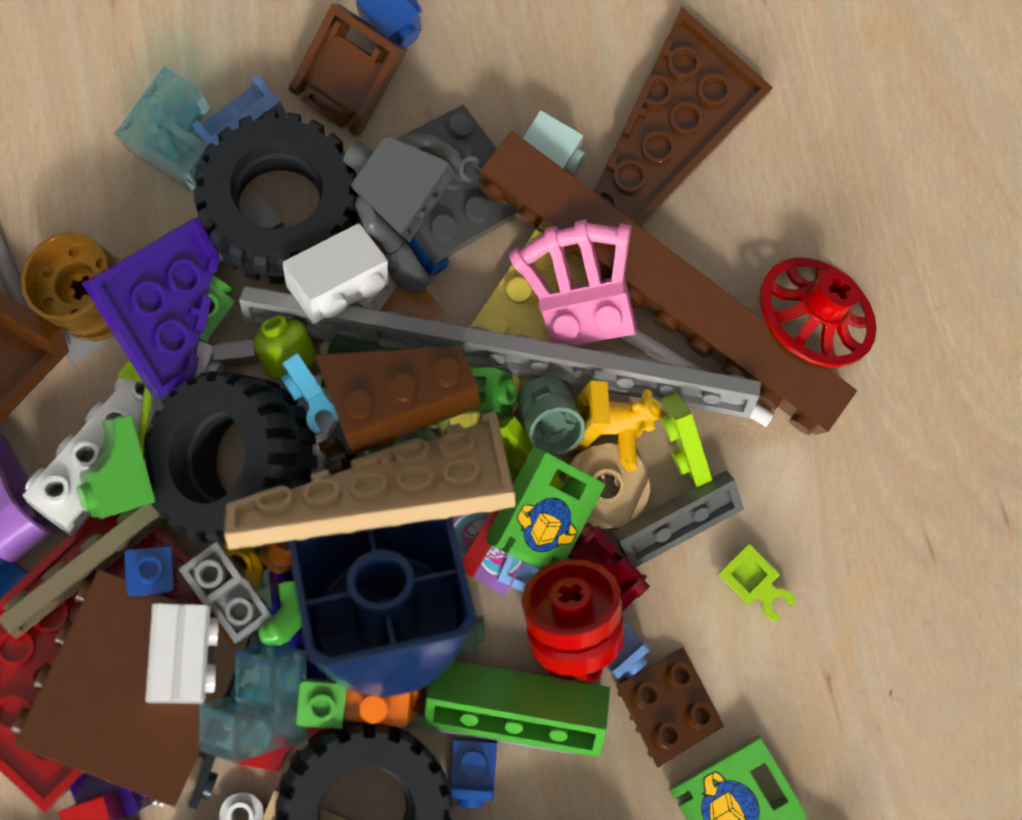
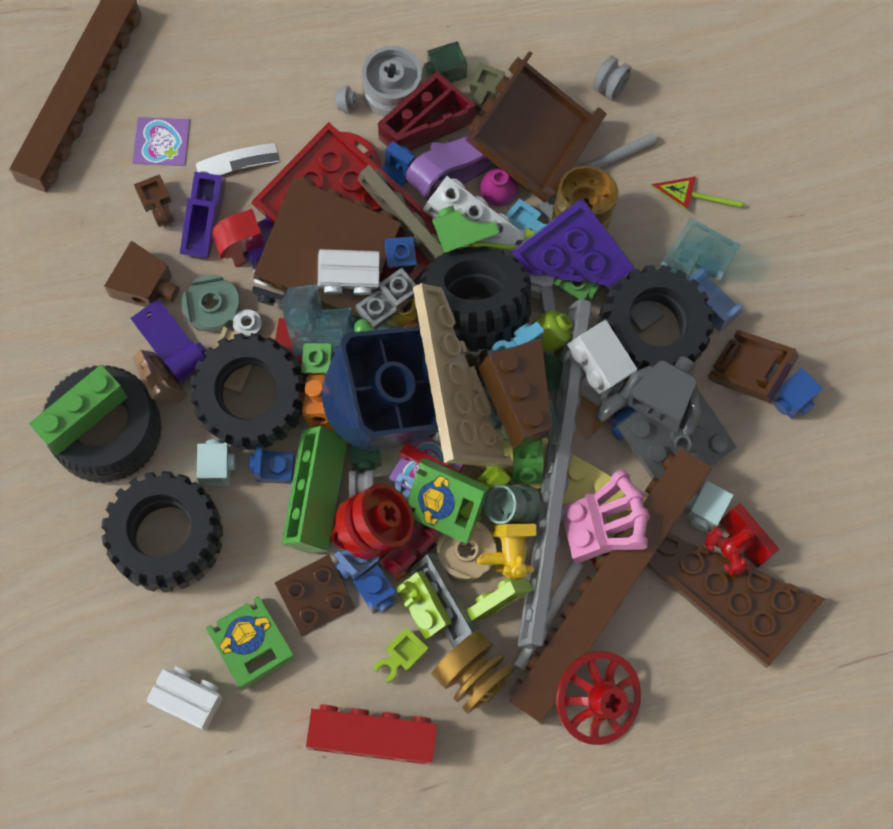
camera: 90 degrees right, 10 degrees down
(37, 421) = (498, 188): none -> dark pink brick
(62, 152) = (681, 192): none -> piece
(95, 380) = (524, 216): none -> medium azure plate
(507, 637) = (359, 482): none -> light grey wheel
(599, 101) = (744, 538): none -> red piece
(662, 616) = (376, 590): none -> blue bracket
(686, 548) = (424, 605): none -> lime plate
(796, 473) = (473, 671): none -> pearl gold wheel
(873, 625) = (371, 735): none -> red brick

